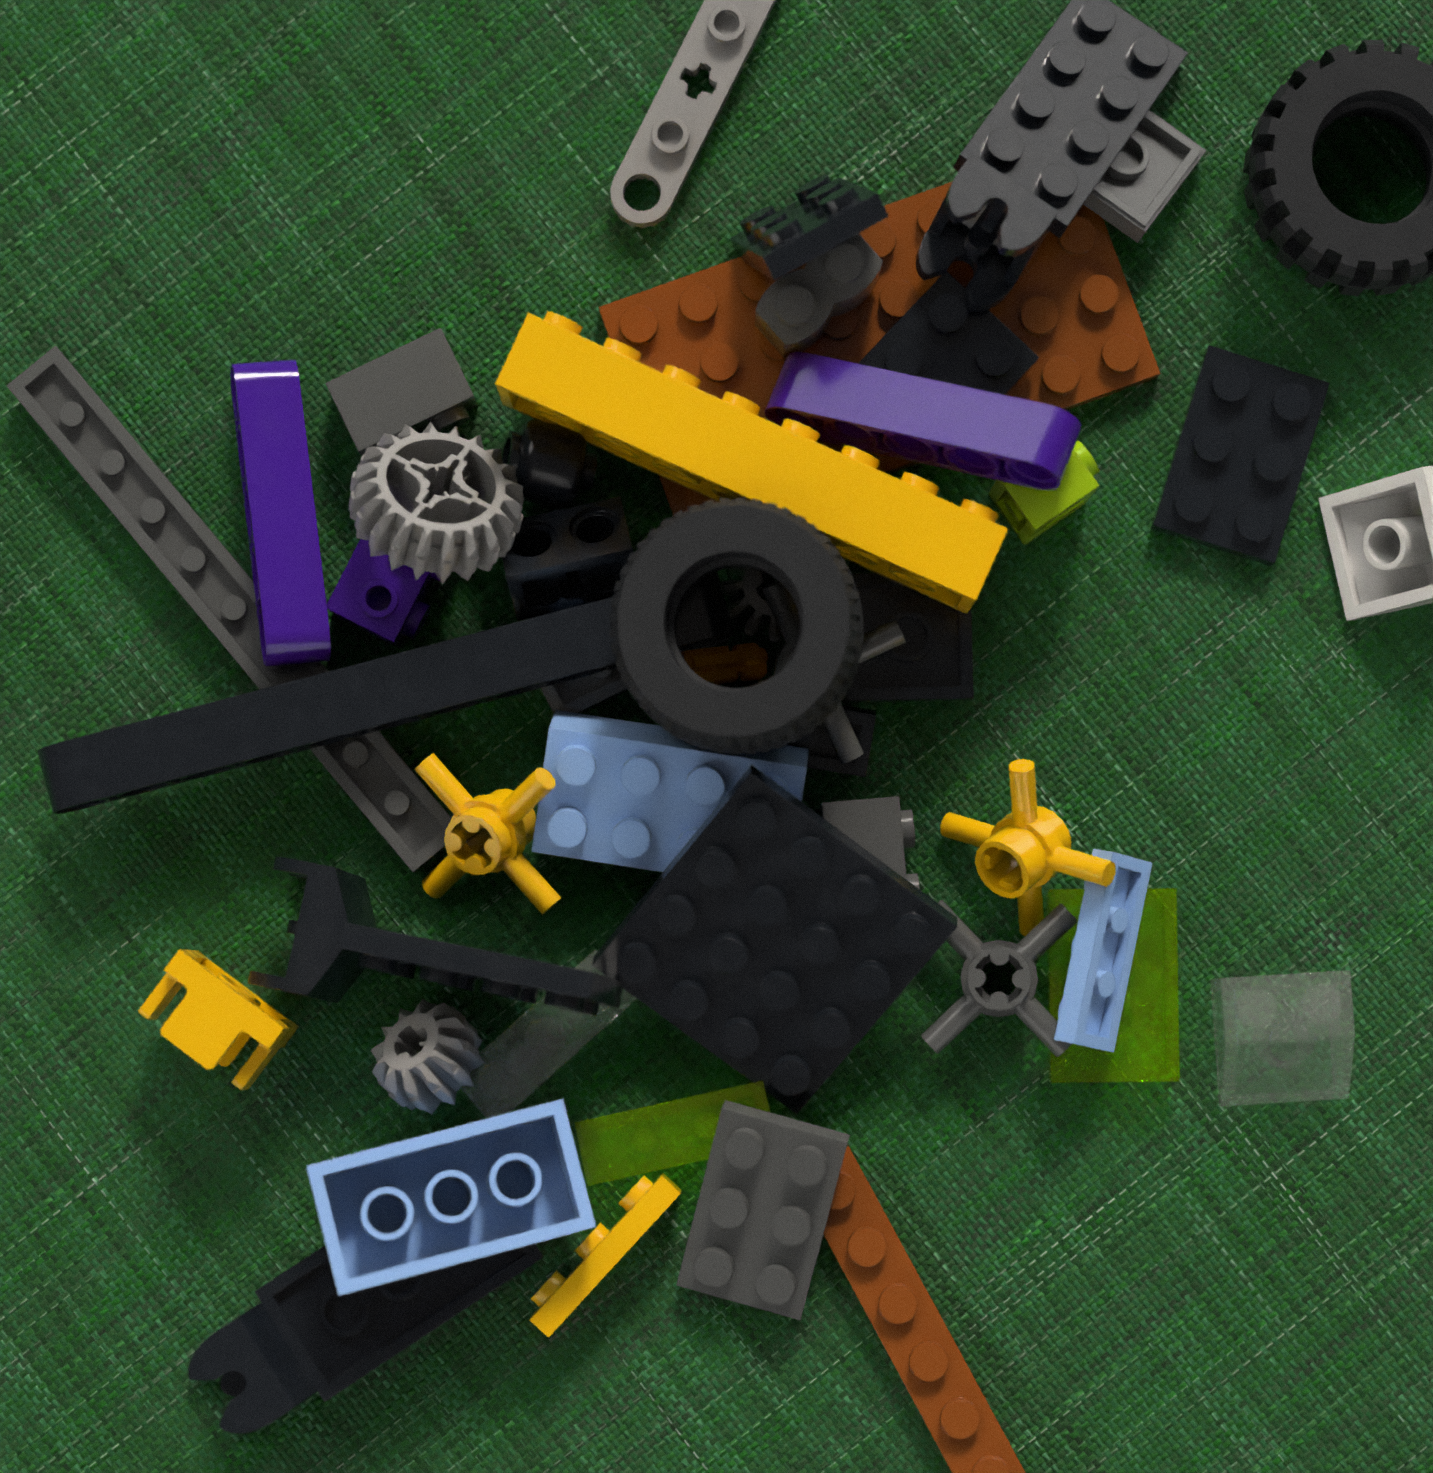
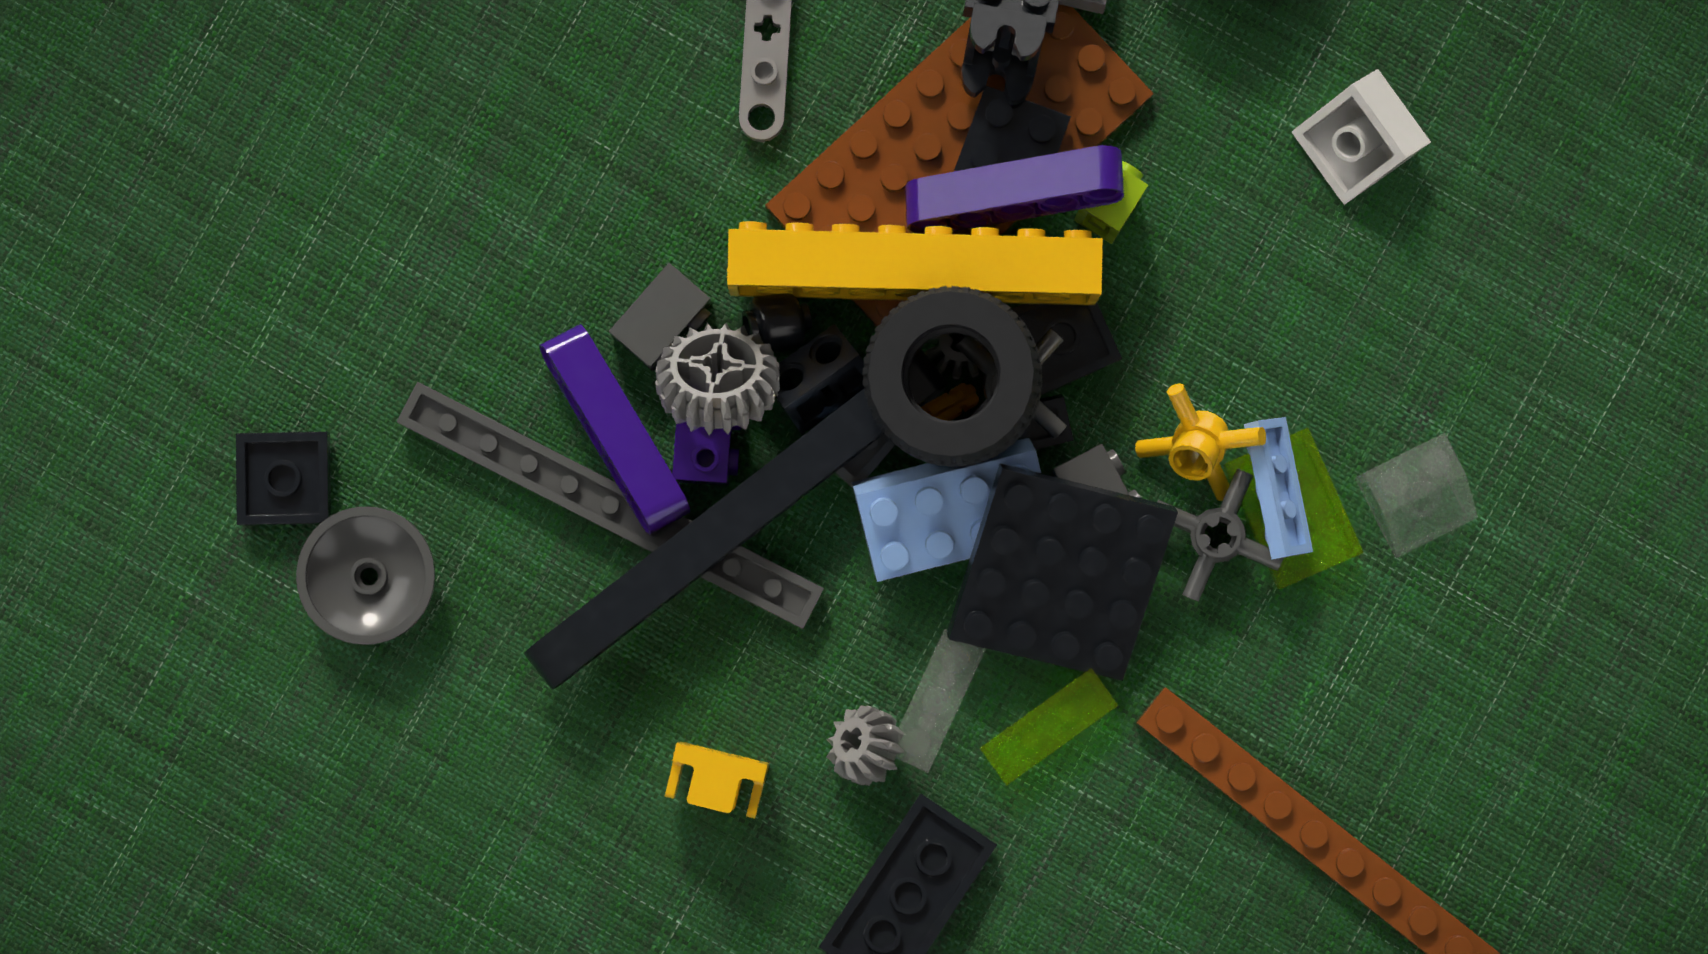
camera: 25 degrees left, 0 degrees up
(340, 939) = (775, 693): black hinge -> none
(450, 1197) = (921, 830): light blue brick -> none
(489, 832) = (843, 581): yellow bar -> none
(602, 1251) = (1034, 824): yellow plate -> none
(762, 1209) = (1127, 752): dark grey plate -> none
(801, 303) = (902, 144): dark grey brick -> none
(813, 224) = (884, 95): black plate -> none
(1240, 455) = (1228, 125): black plate -> none

